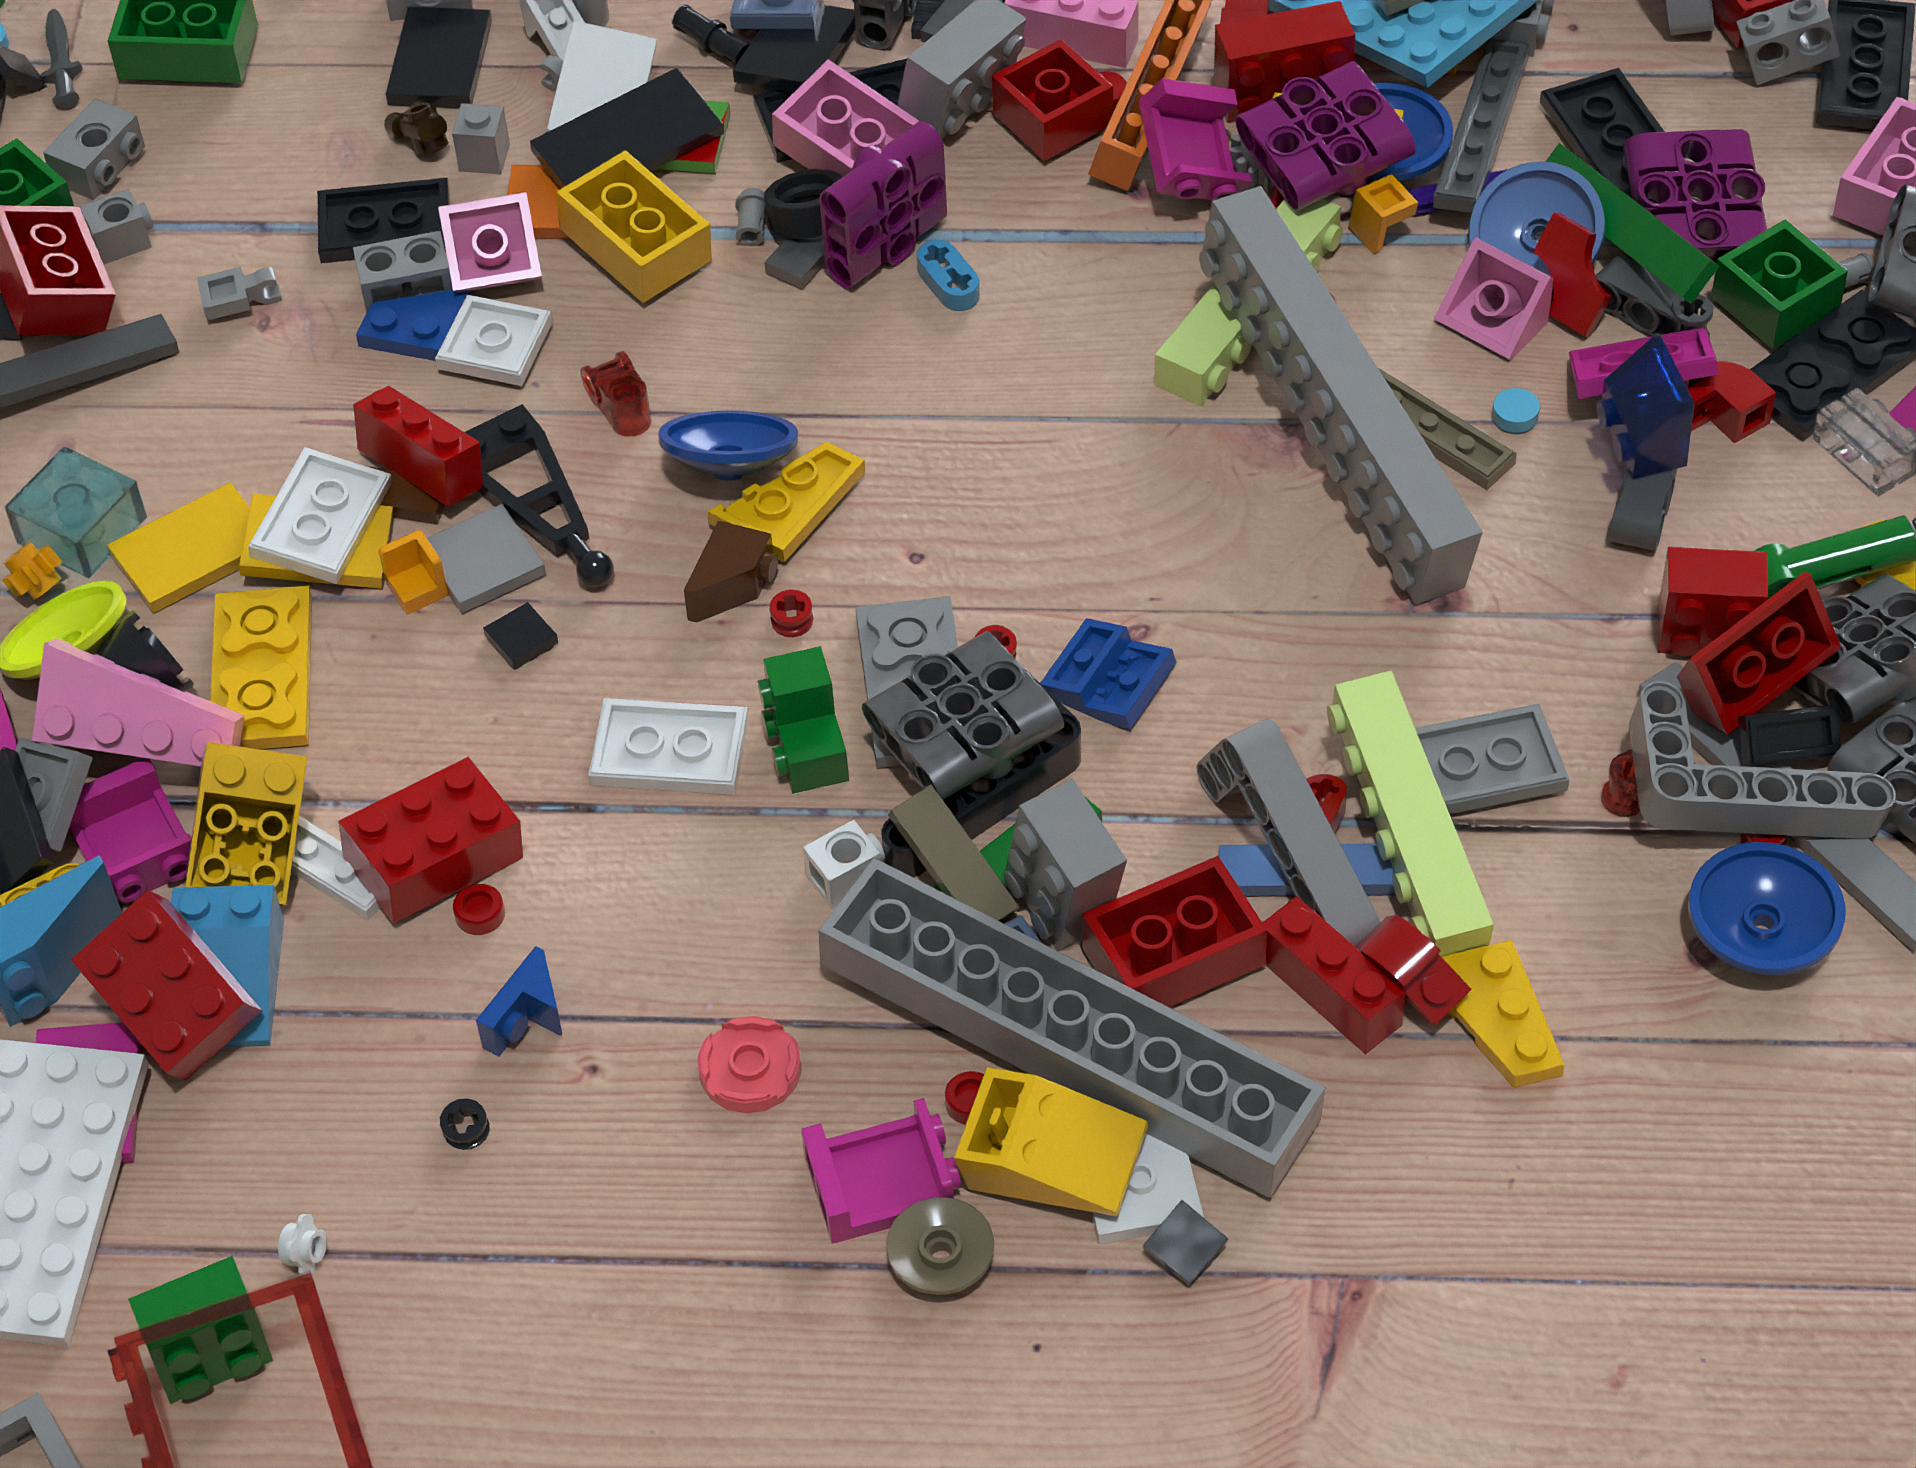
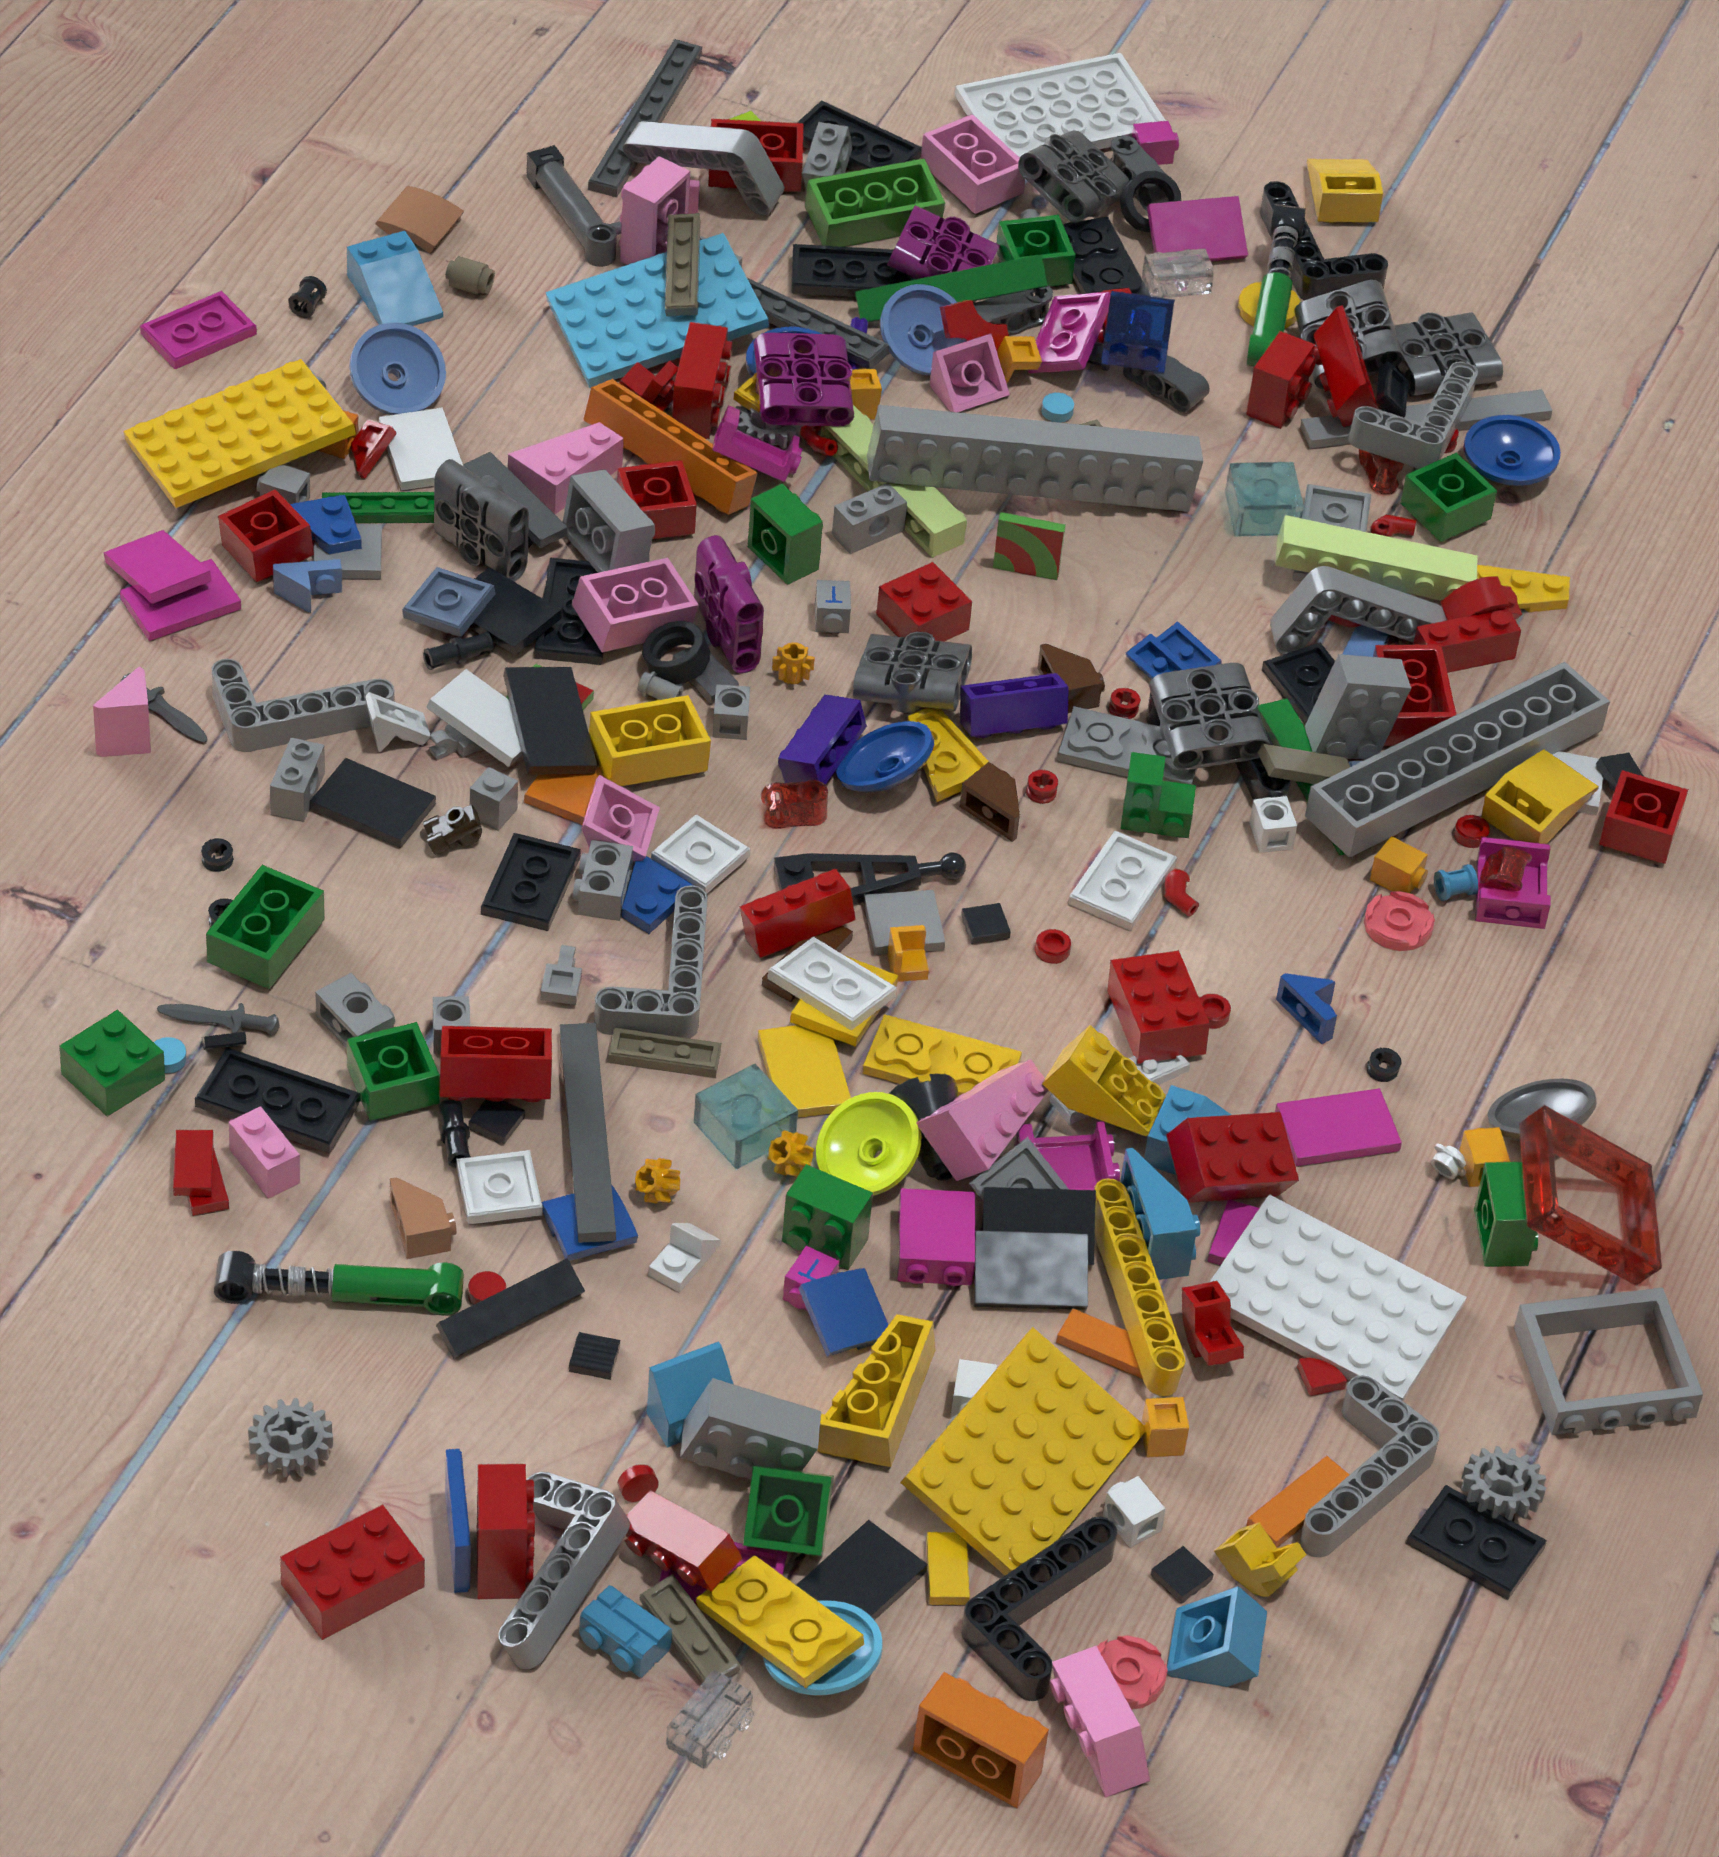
camera: 75 degrees left, 5 degrees down
(166, 419) = (664, 1052): none -> dark tan tile
(291, 385) = (671, 1010): none -> light grey beam
(326, 1106) = (1339, 1127): none -> dark pink tile
(337, 1277) = (1480, 1147): none -> light orange brick
(425, 1320) = (1566, 1096): none -> flat silver dish
(515, 713) = (1053, 946): none -> red tile
(671, 803) = (1176, 892): none -> red arm
(731, 378) = (823, 740): none -> dark purple brick
(744, 285) = (731, 712): none -> light grey brick
(836, 1027) = (1399, 867): none -> light orange brick
(844, 1101) = (1456, 882): none -> dark azure bush
(859, 1144) = (1505, 869): none -> clear red piece
(860, 311) = (793, 663): none -> light orange gear
(898, 529) = (1013, 705): none -> dark purple brick
(899, 418) = (912, 672): none -> flat silver connector
(934, 1227) = (1580, 872): dark tan dish -> none
(940, 279) = (779, 614): dark azure beam -> none
(982, 314) = (832, 606): none -> light grey brick
(988, 575) = (1077, 672): none -> reddish brown slope
(1030, 395) = (924, 603): none -> red brick
(1061, 222) = (785, 534): none -> green brick
(1086, 1287) = (1643, 817): none -> red brick
(1154, 290) = (869, 518): none -> light grey brick
(1165, 829) = (1300, 676): none -> black tile
(1194, 449) = (1029, 546): none -> tile
(1472, 662) = (1262, 496): none -> clear light blue brick
(1532, 825) = (1390, 525): none -> red arm
(1560, 329) = (1018, 354): none -> light orange panel
(1614, 863) = (1448, 497): none -> green brick
(1732, 87) = (870, 202): none -> bright green brick

